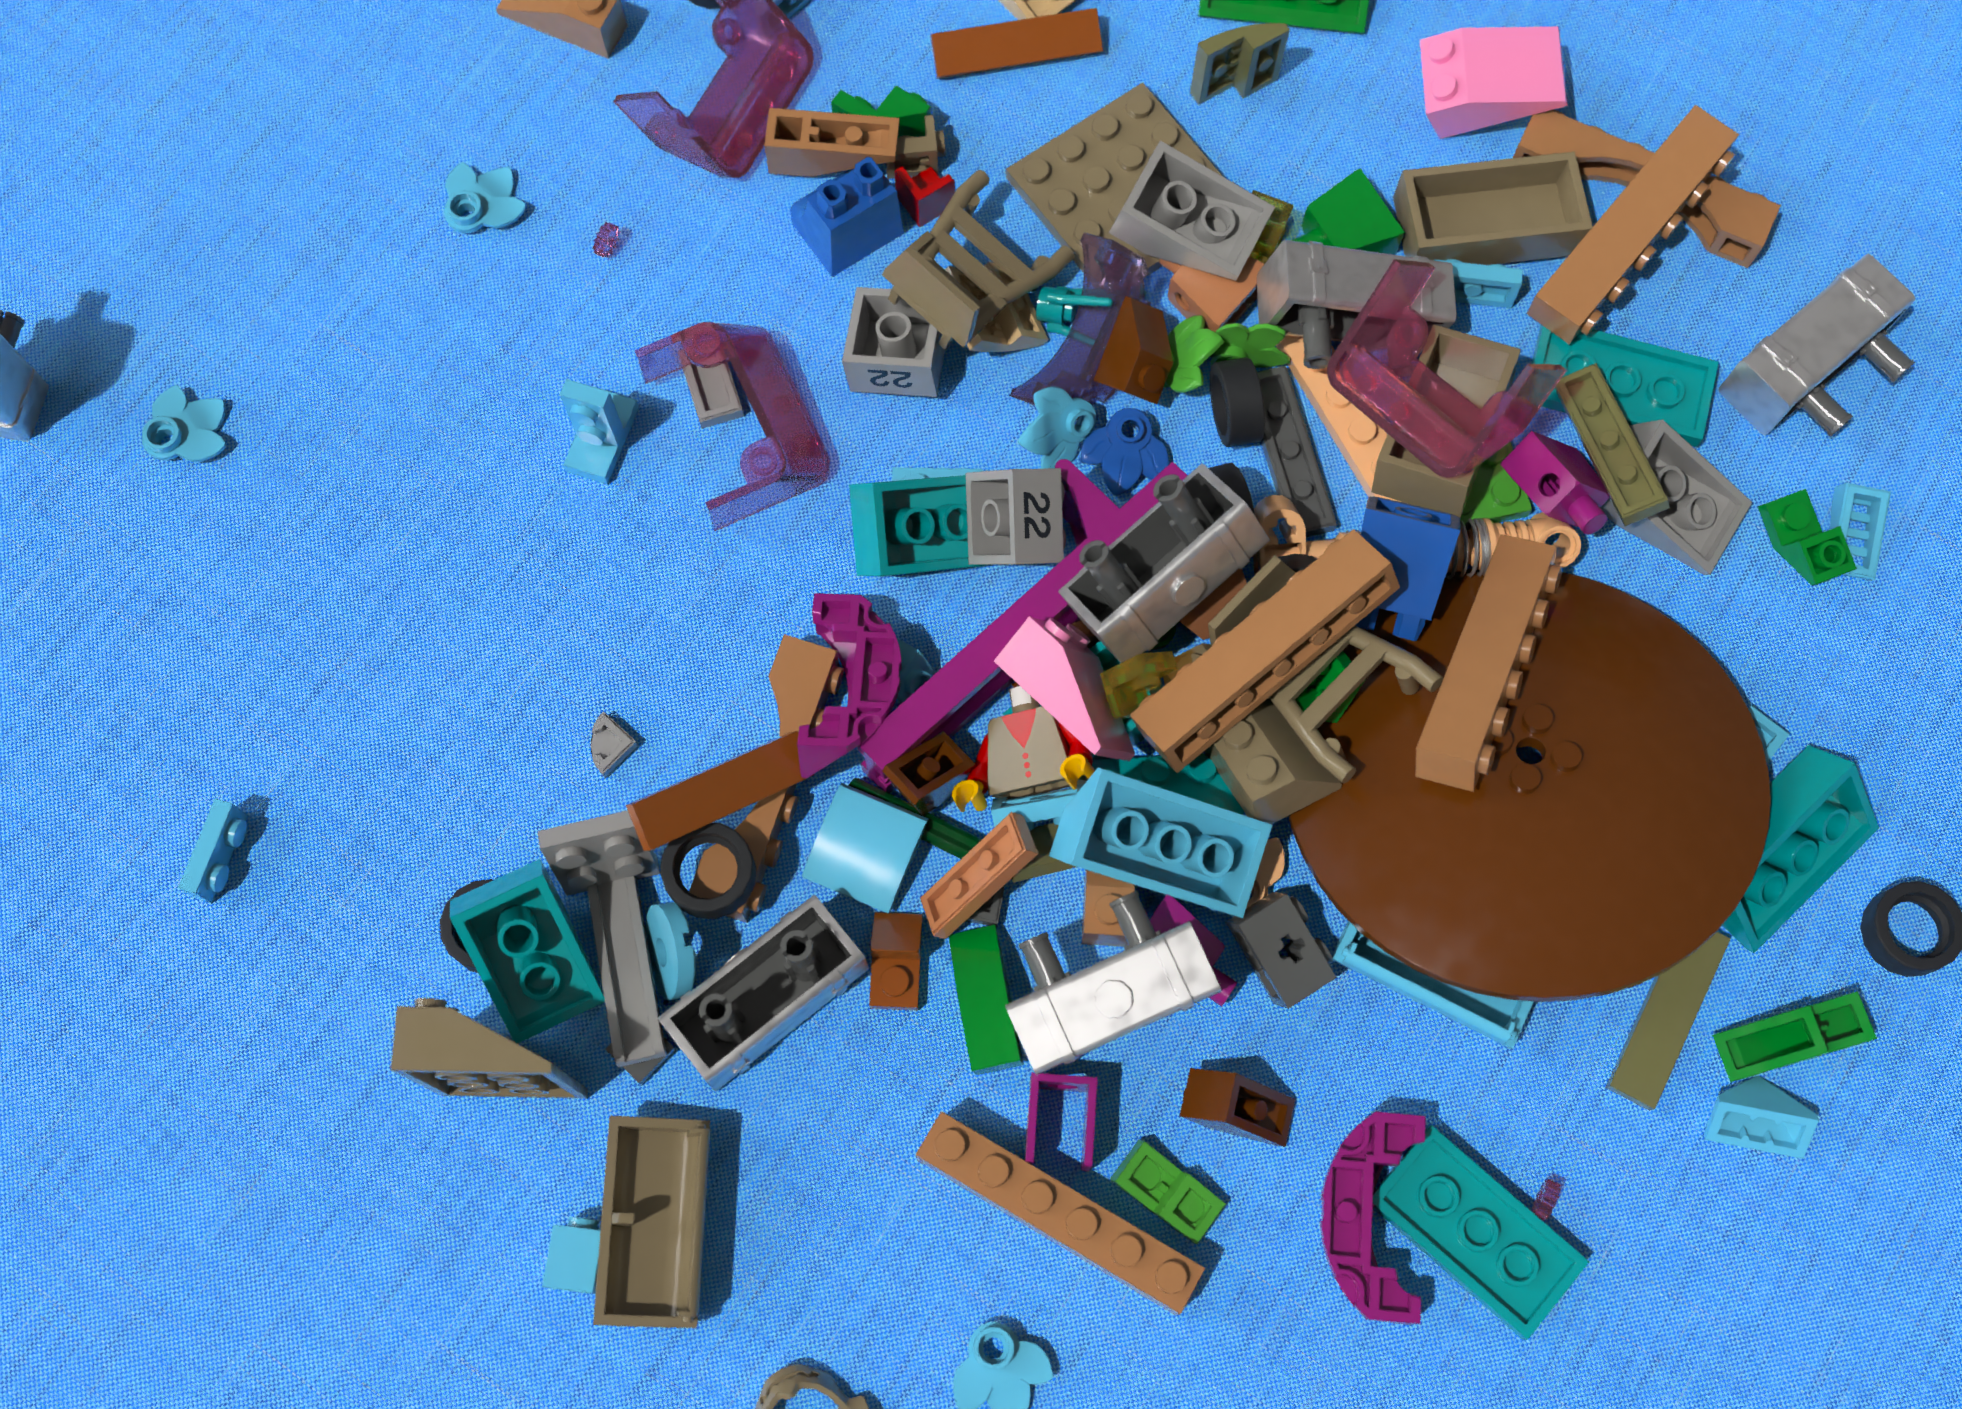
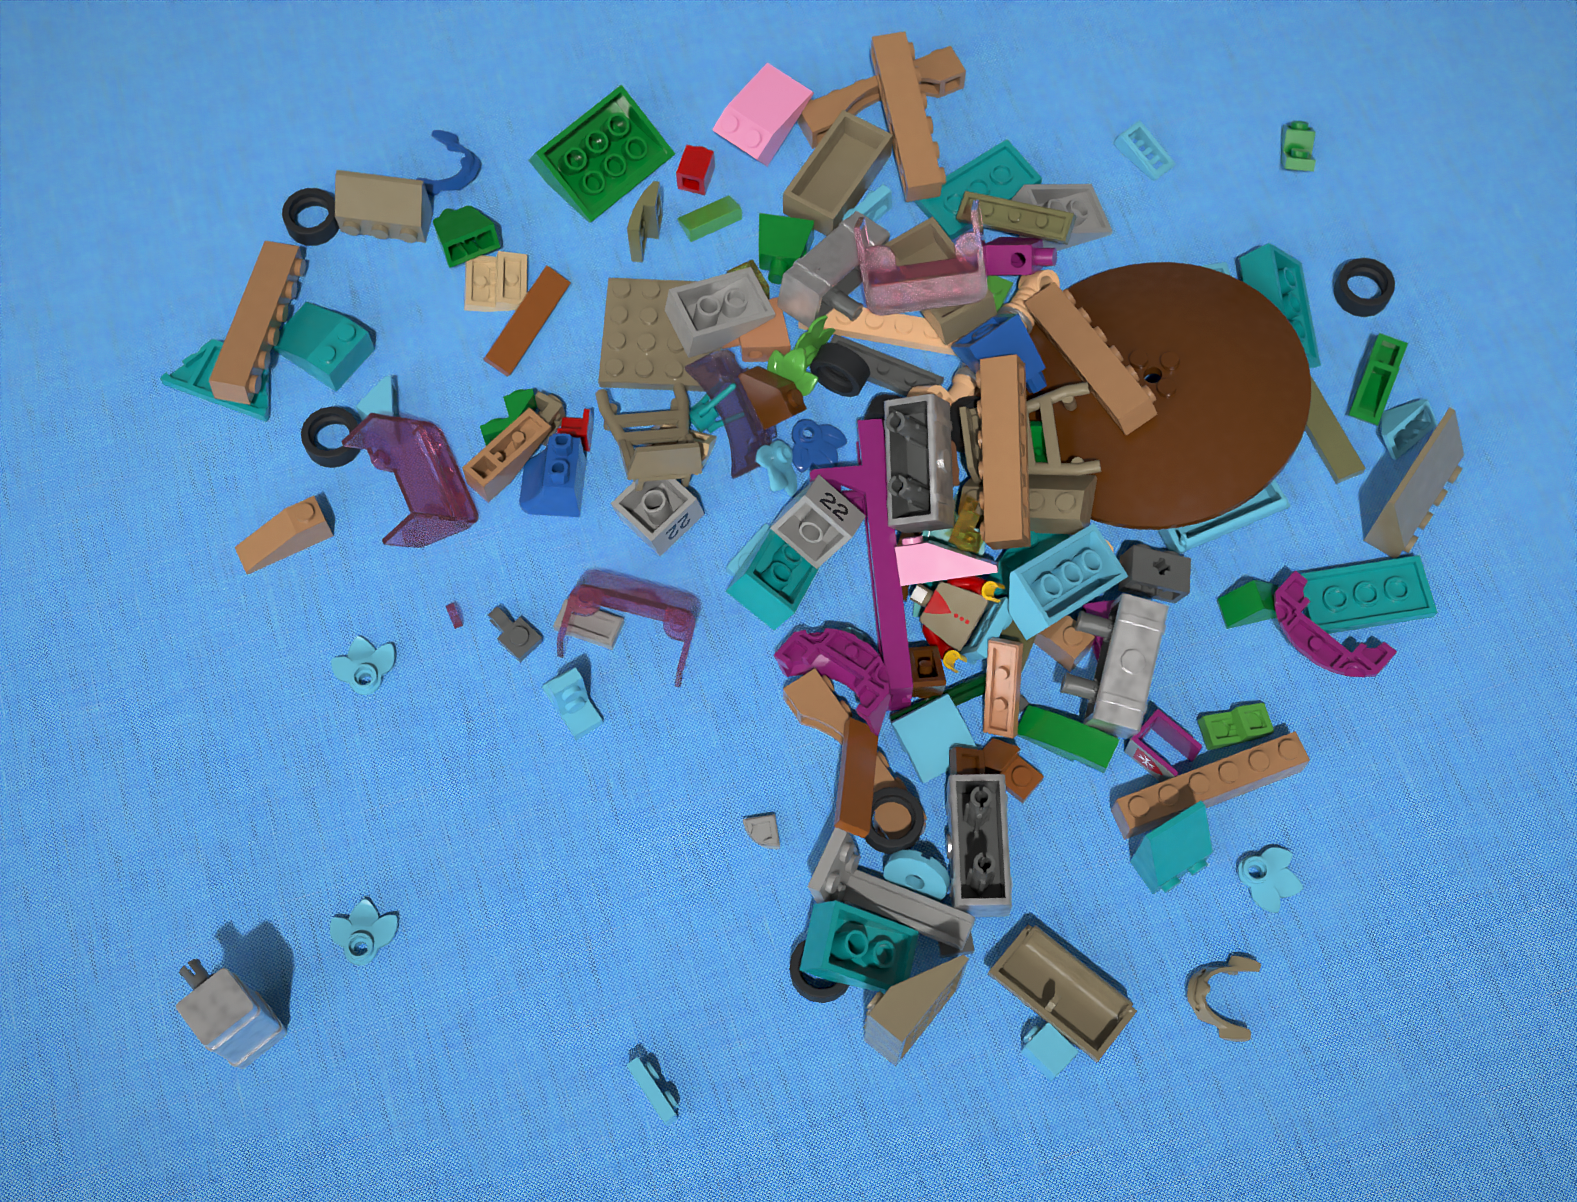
camera: 50 degrees left, 5 degrees down
(634, 321) = (516, 637): none -> dark grey plate
(855, 907) = (966, 761): none -> reddish brown plate
(928, 1229) = (1174, 850): none -> teal slope
(1237, 1106) = (1217, 658): reddish brown slope -> none
(1315, 129) = (710, 218): none -> bright green slope
(1342, 1091) = (1248, 604): none -> green slope
(1360, 65) = (695, 169): none -> red brick
(1546, 1199) = (1373, 551): clear pink piece -> none
(1678, 1195) = (1419, 490): none -> dark tan slope
(1800, 540) = (1143, 177): green slope -> none
(1816, 344) = (1039, 90): flat silver piece -> none

